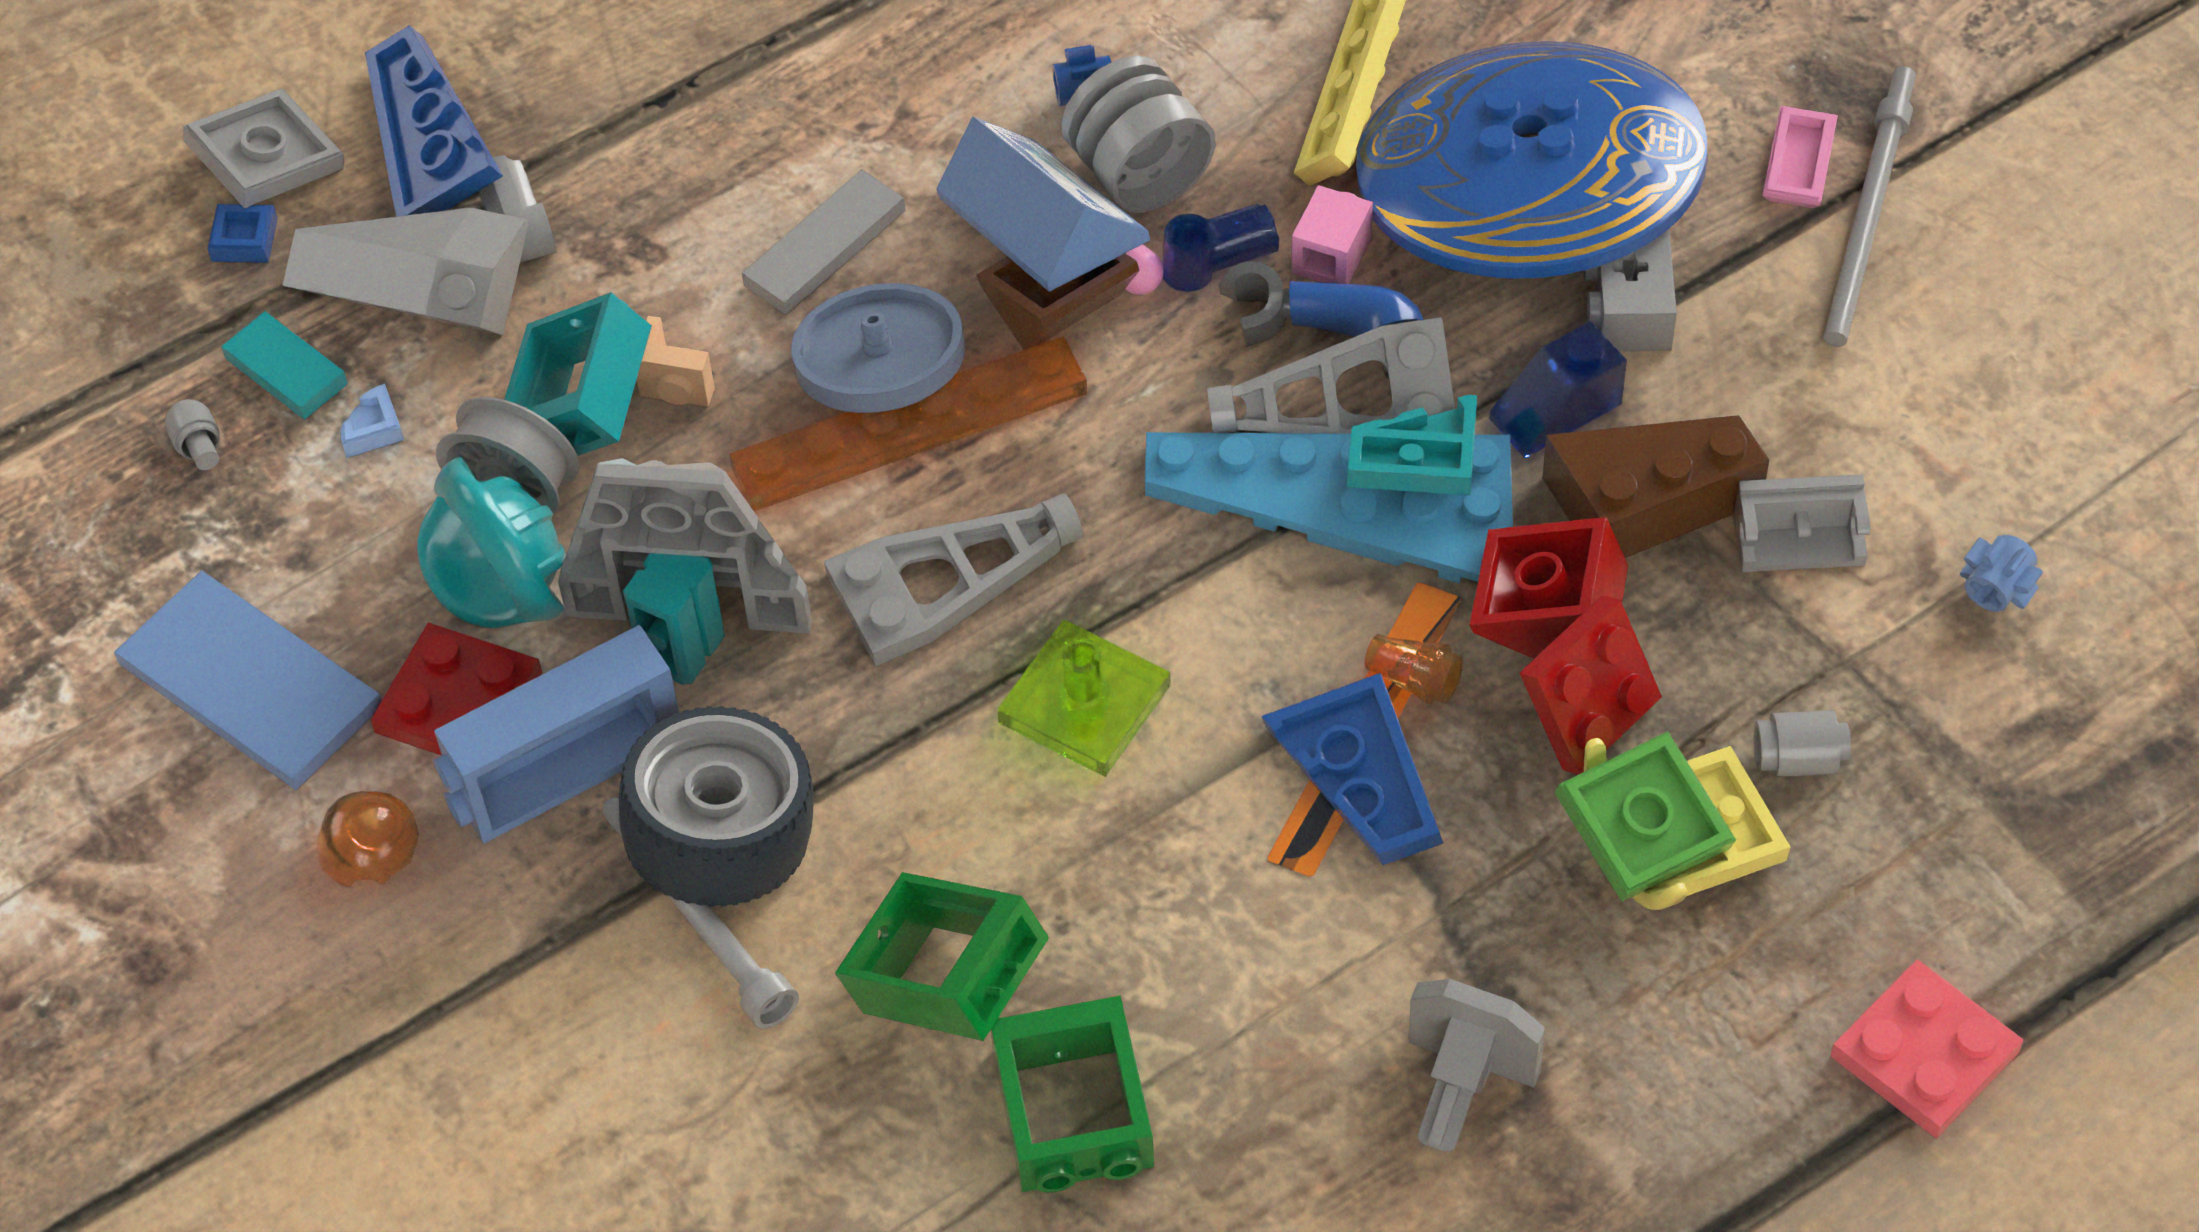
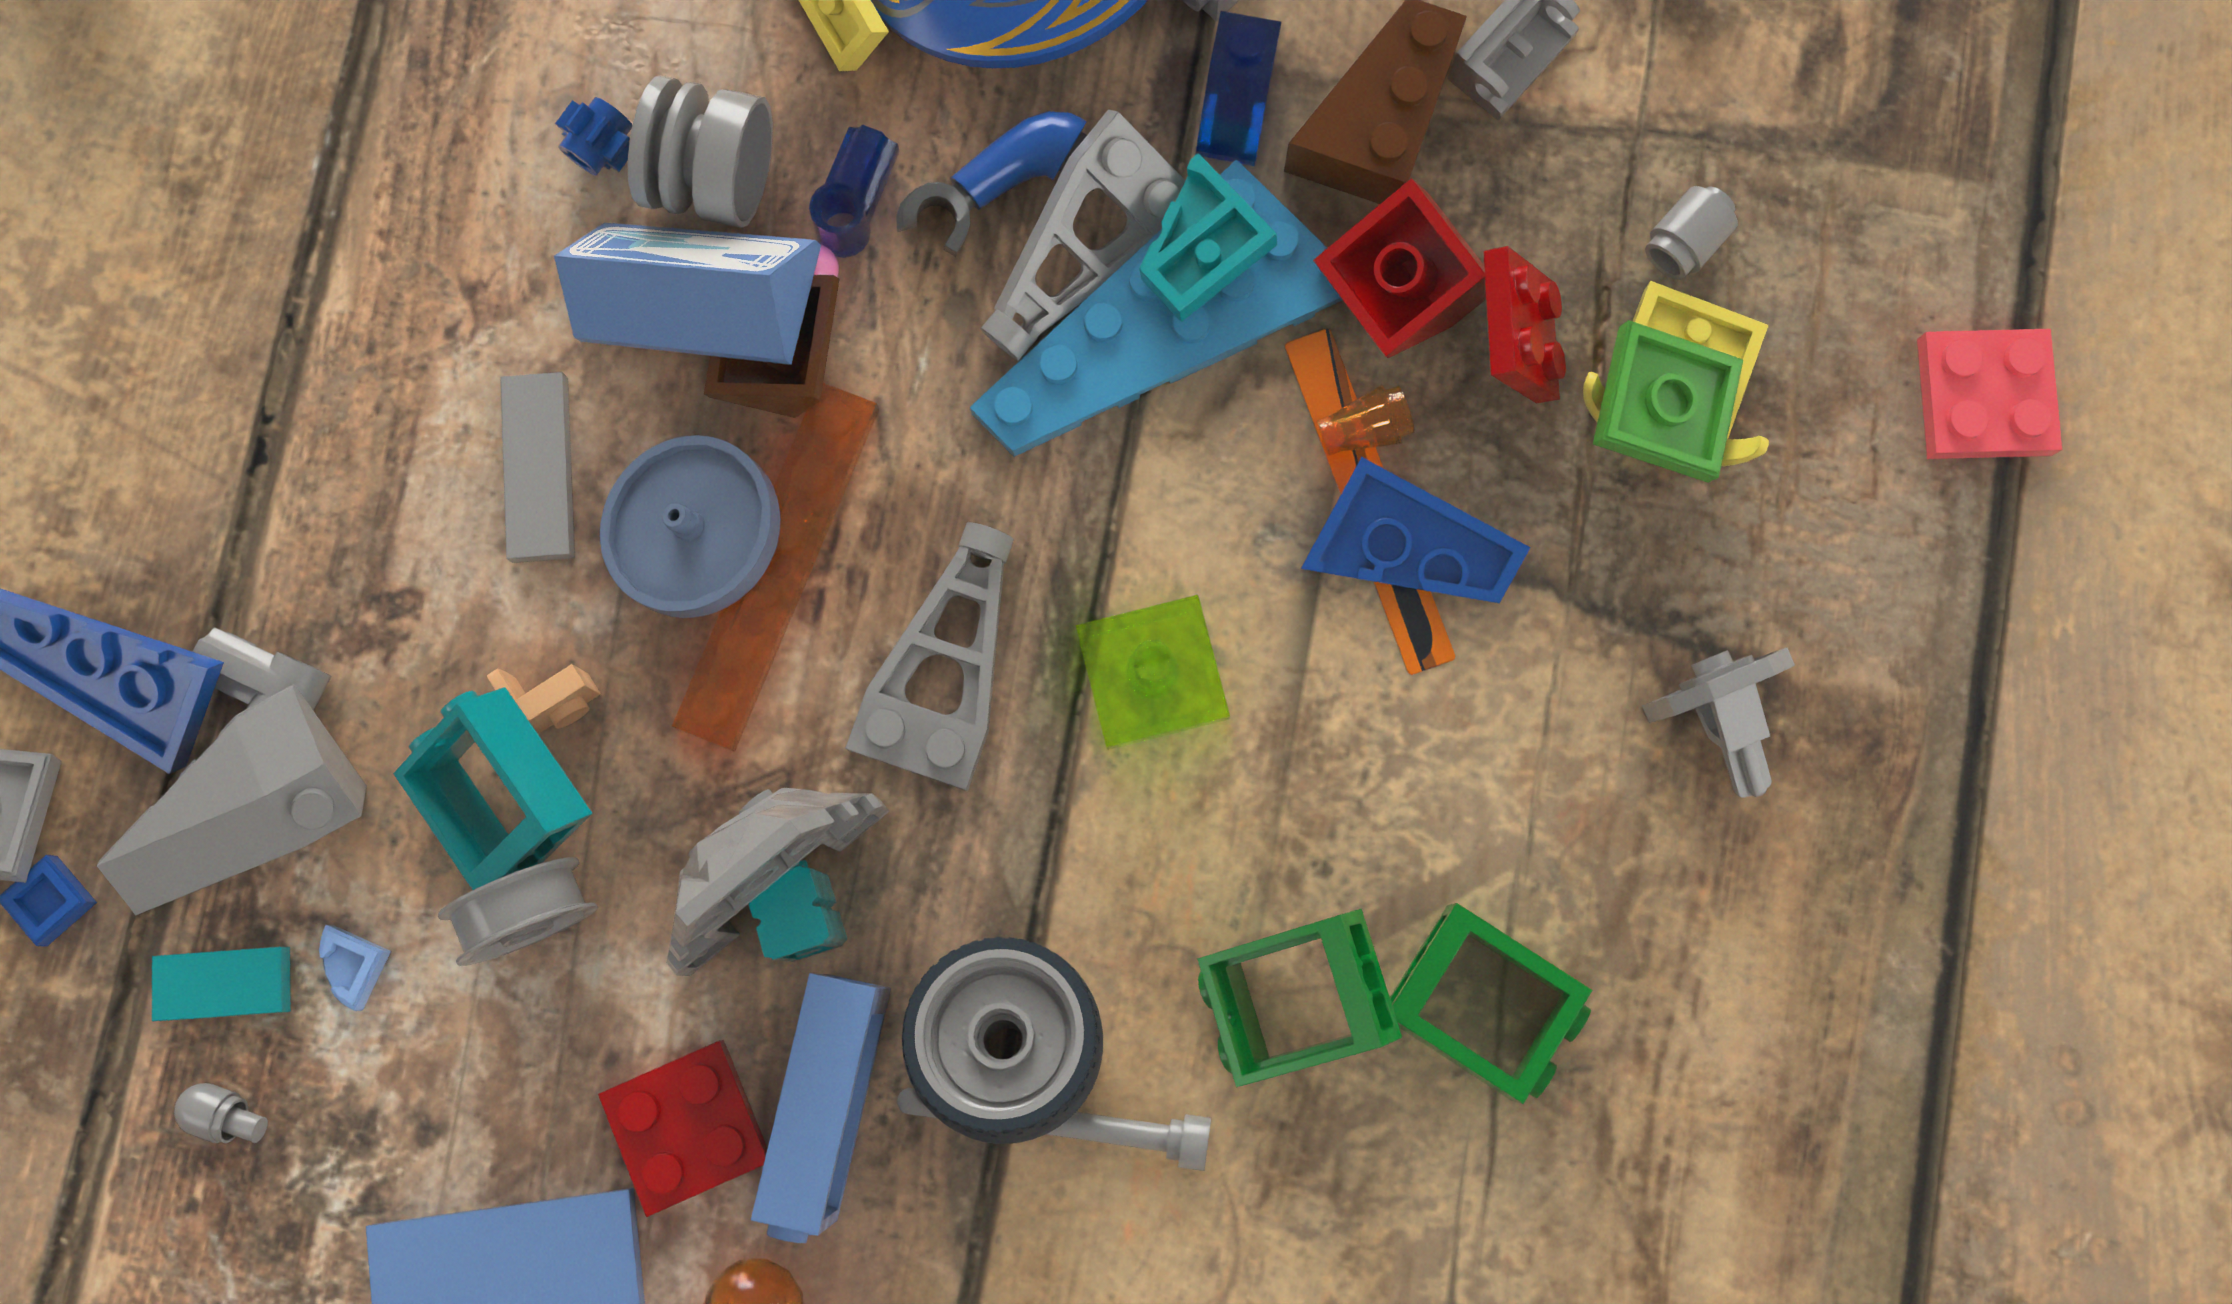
camera: 45 degrees left, 25 degrees up
(489, 550) = (601, 1000): teal piece -> none
(1331, 236) = (933, 103): bright pink brick -> none

